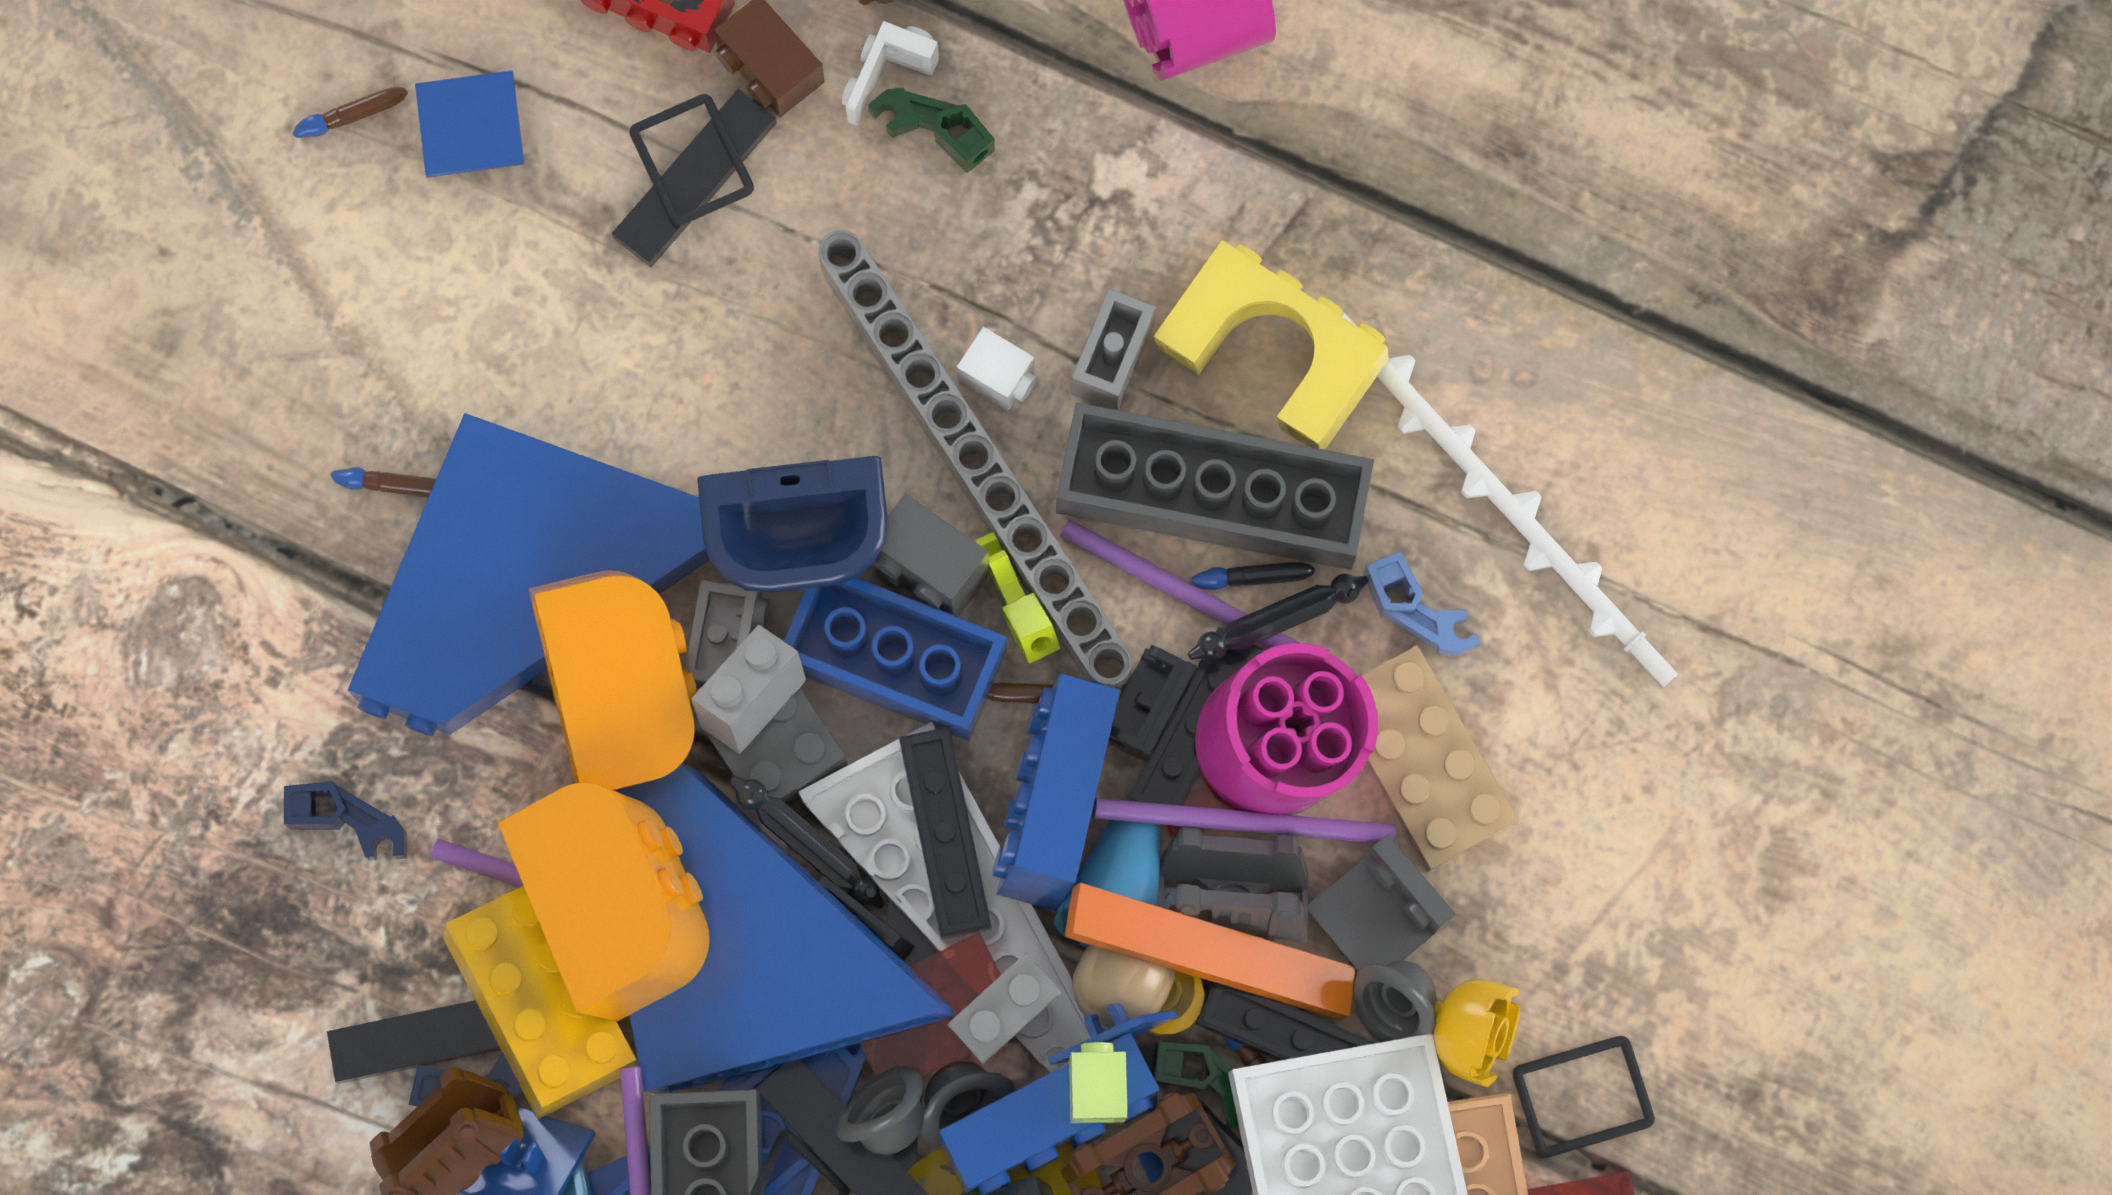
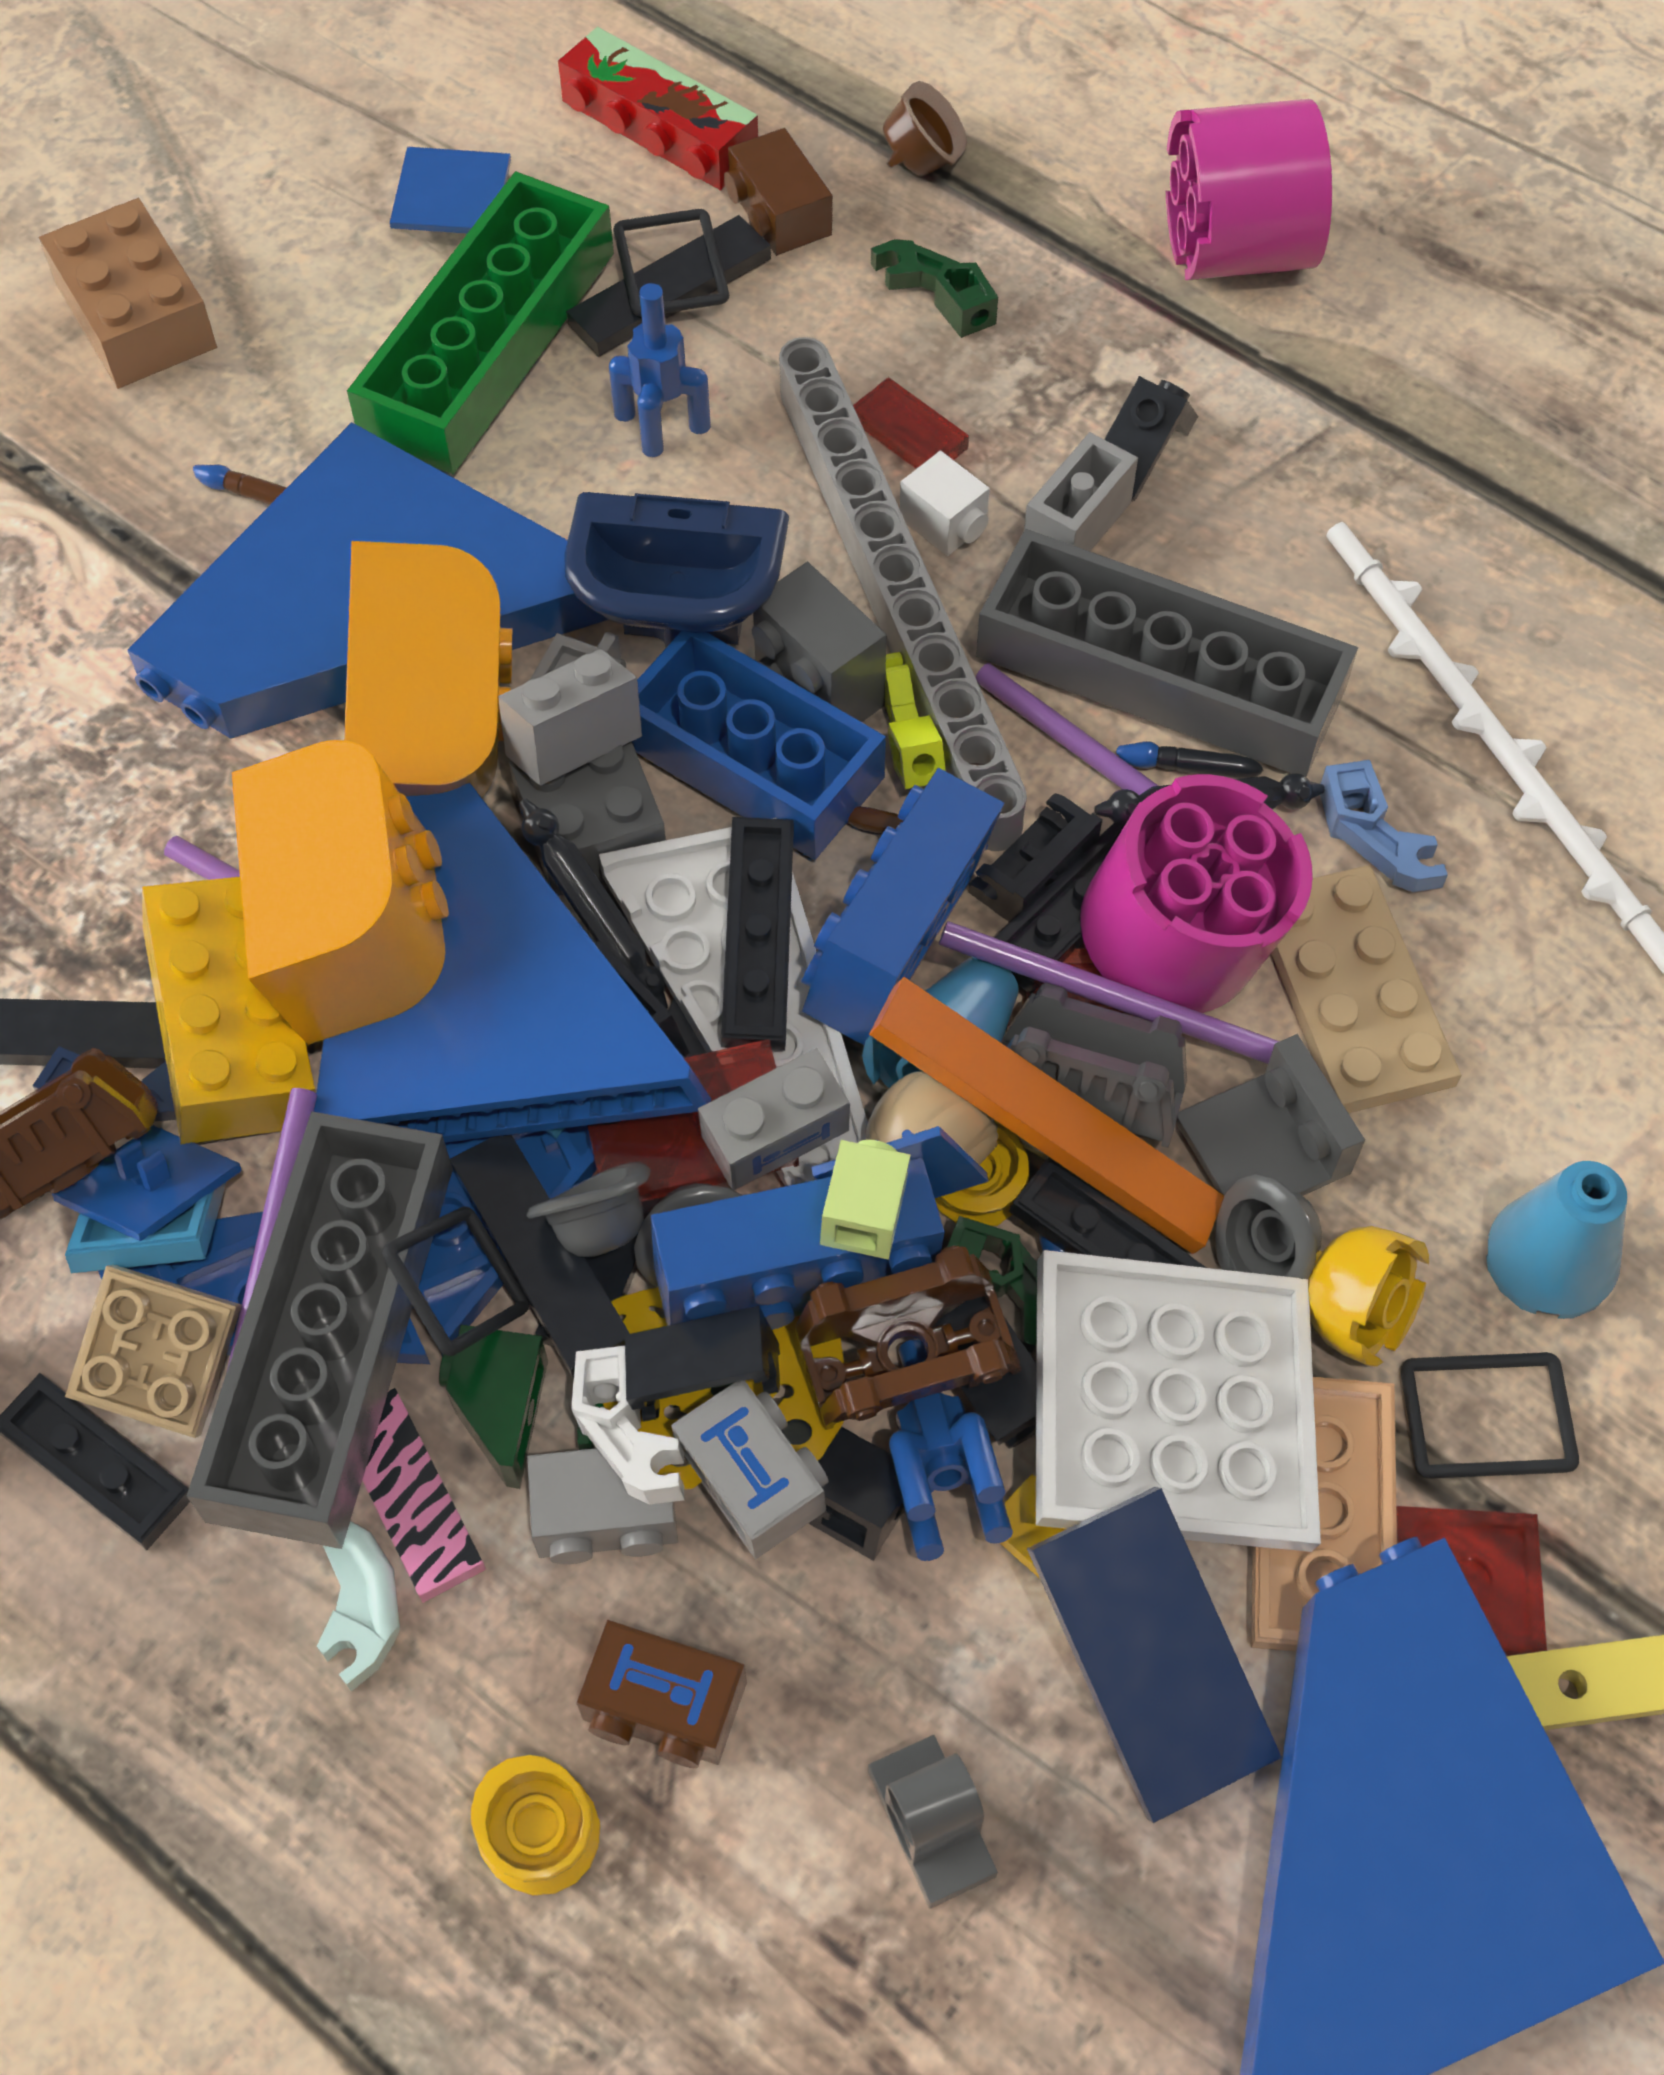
camera: 15 degrees right, 15 degrees down
(212, 306) = (128, 292): none -> medium nougat brick
(319, 124) = (334, 169): reddish brown piece -> none
(369, 823) = (107, 801): dark blue piece -> none
(545, 270) = (483, 321): none -> green brick
(720, 307) = (657, 375): none -> blue plant
(906, 47) = (907, 205): white bracket -> none
(945, 288) = (908, 424): none -> clear red tile
(1152, 252) = (1148, 422): none -> black bracket
(1237, 288) = (1238, 475): light yellow arch -> none
(1612, 953) = (1561, 1242): none -> dark azure cone

